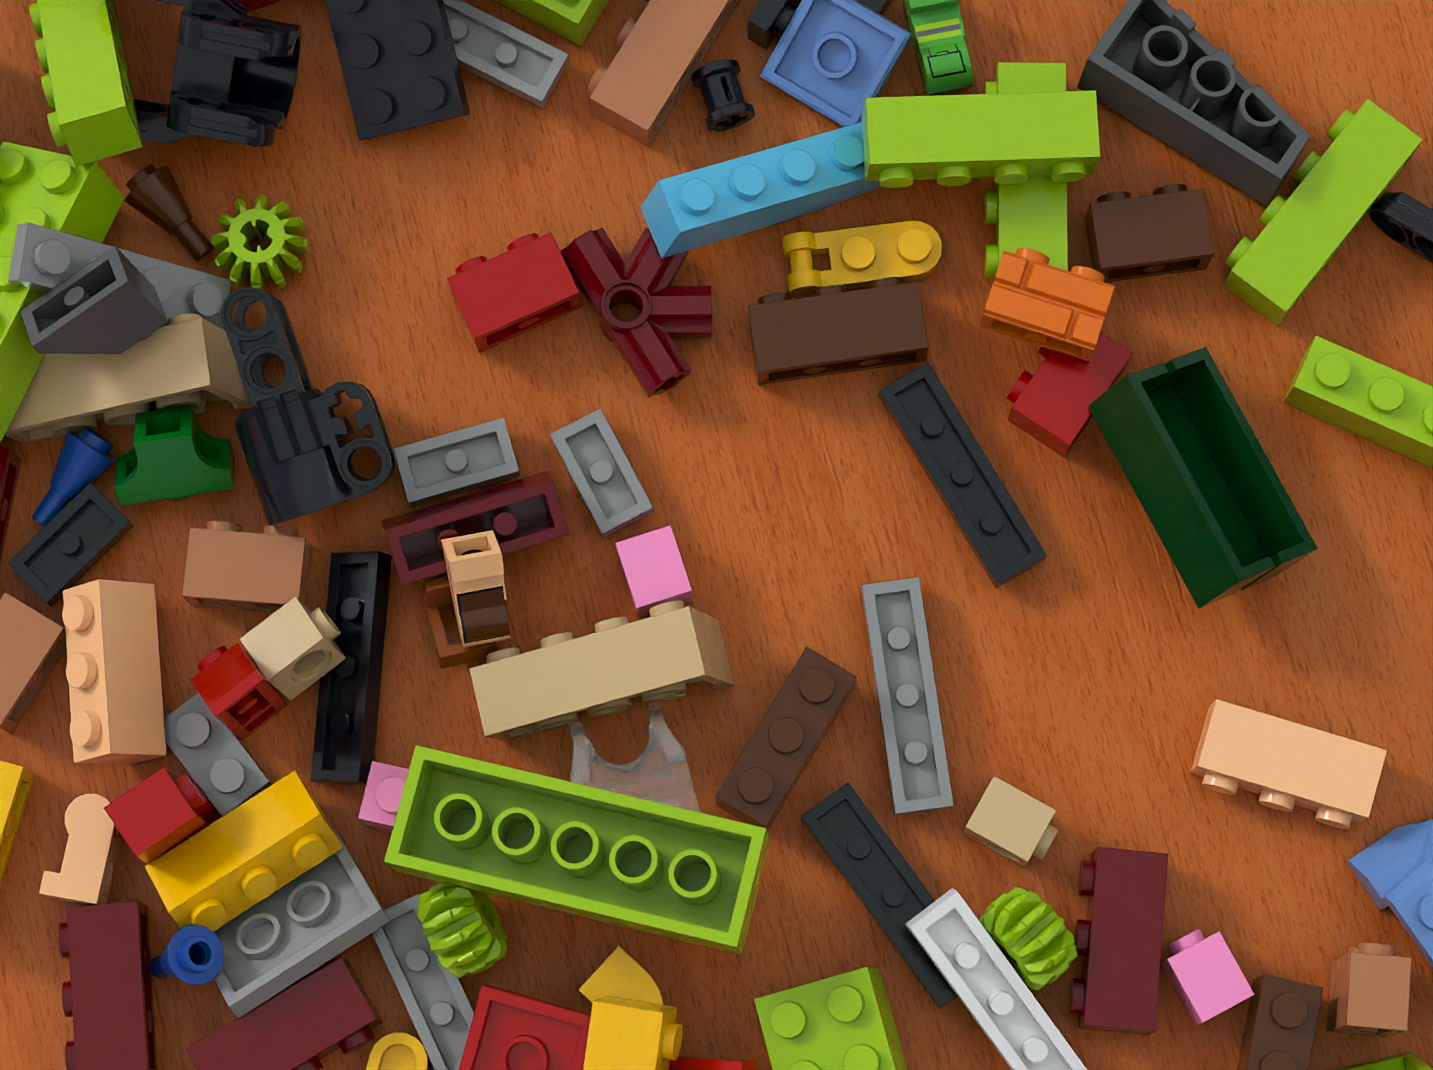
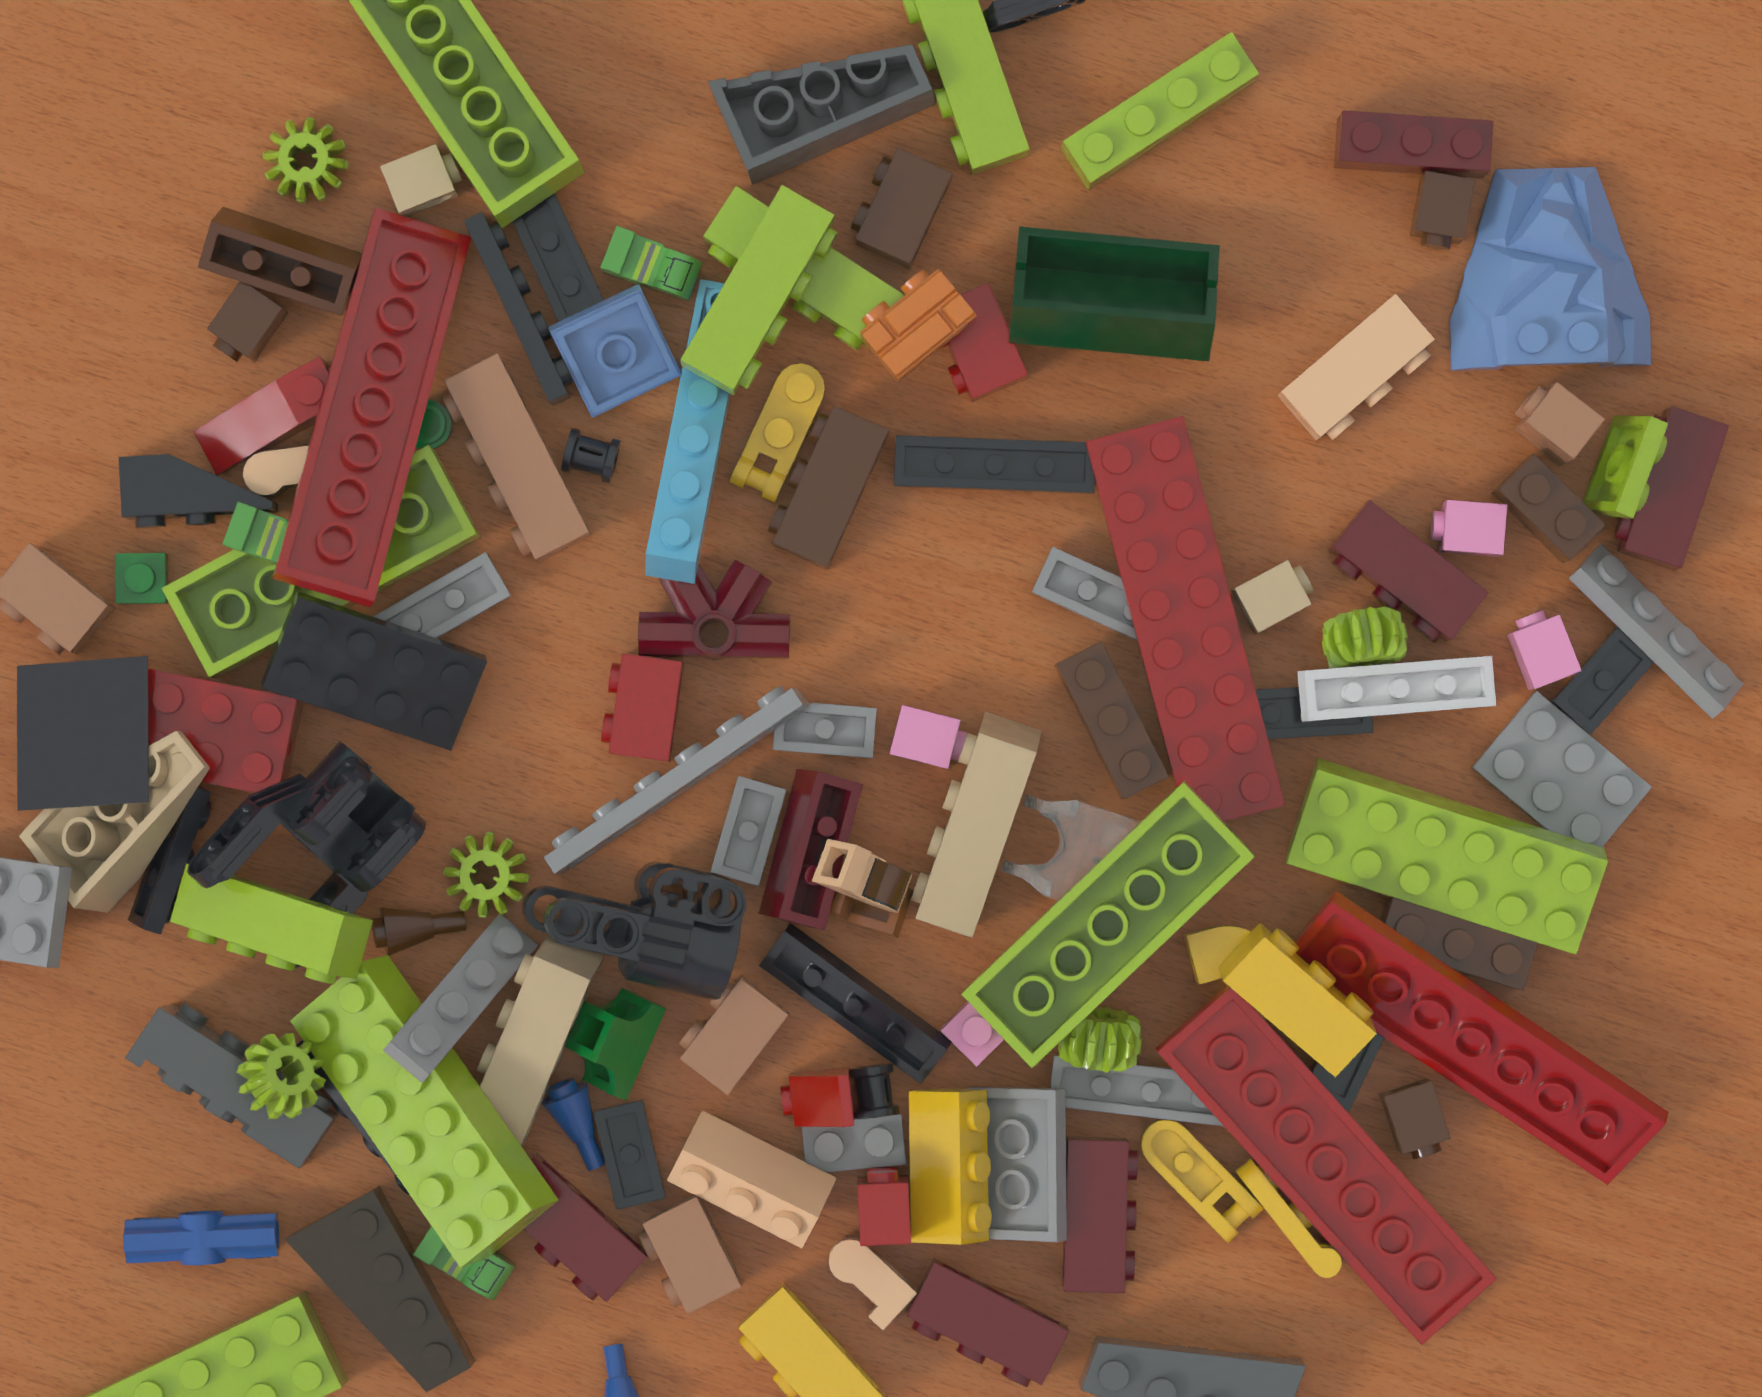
camera: 60 degrees left, 10 degrees up
(95, 310) = (483, 1031): dark grey slope -> none
(191, 956) = (1002, 1247): blue cone -> none
(275, 740) = (874, 1091): none -> black bush
(294, 647) = (818, 1036): tan brick -> none
(482, 366) = (658, 790): none -> light grey plate
(930, 749) = (1184, 618): none -> red plate

